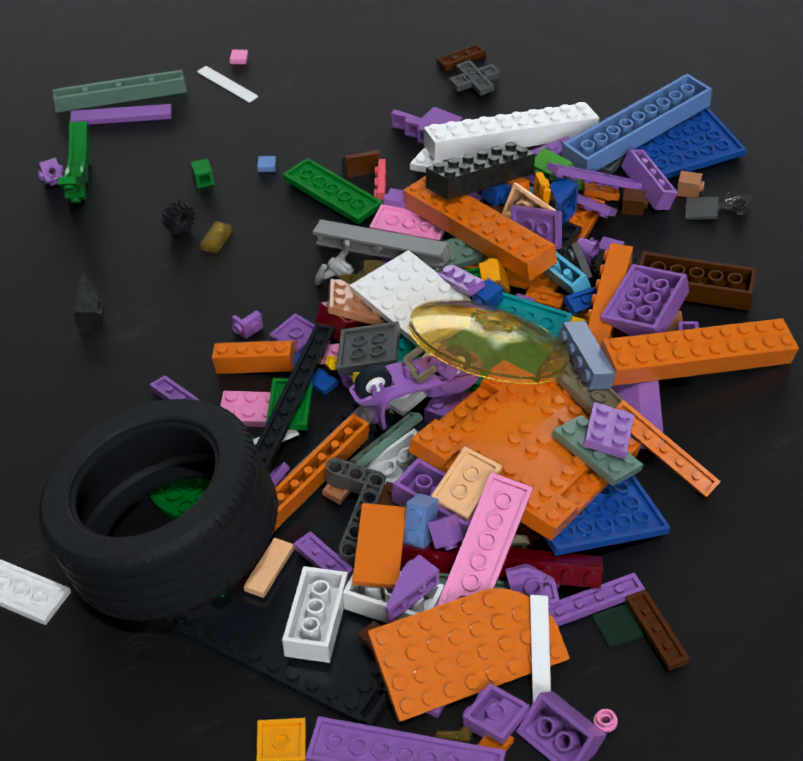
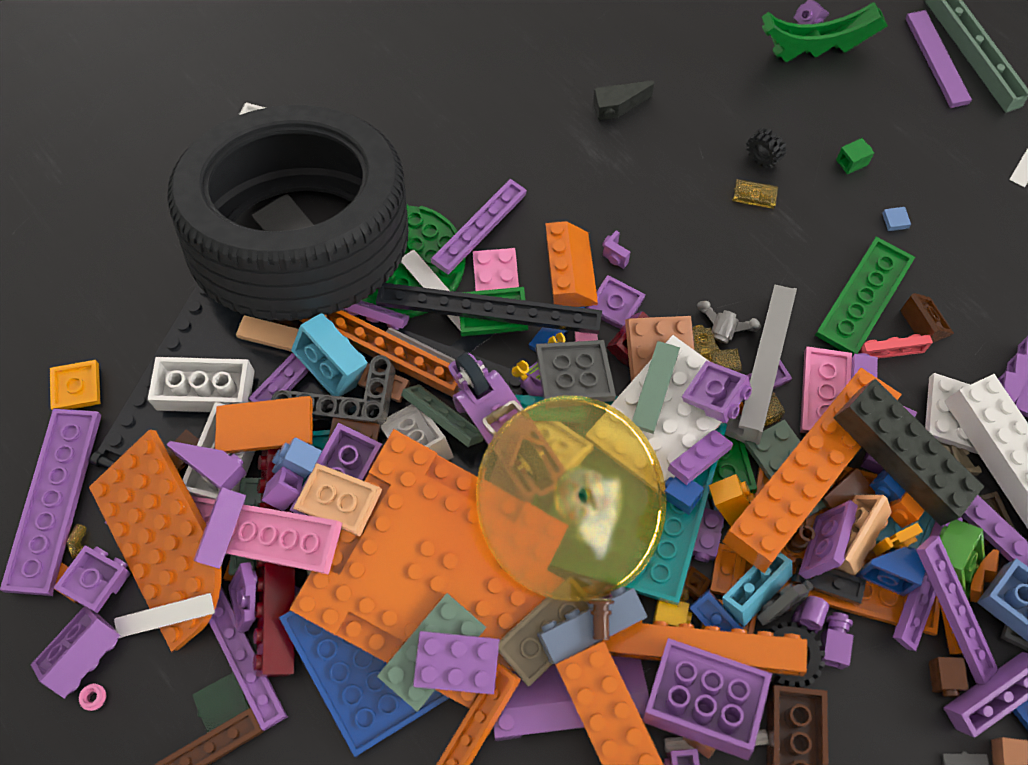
camera: 80 degrees right, 20 degrees up
(314, 506) = (328, 355): none -> medium azure brick
(391, 294) = (655, 387): none -> sand green tile
(411, 258) = (718, 391): none -> medium lavender plate
(474, 576) = (219, 527): none -> medium lavender tile
(584, 337) = (601, 617): none -> reddish brown pin

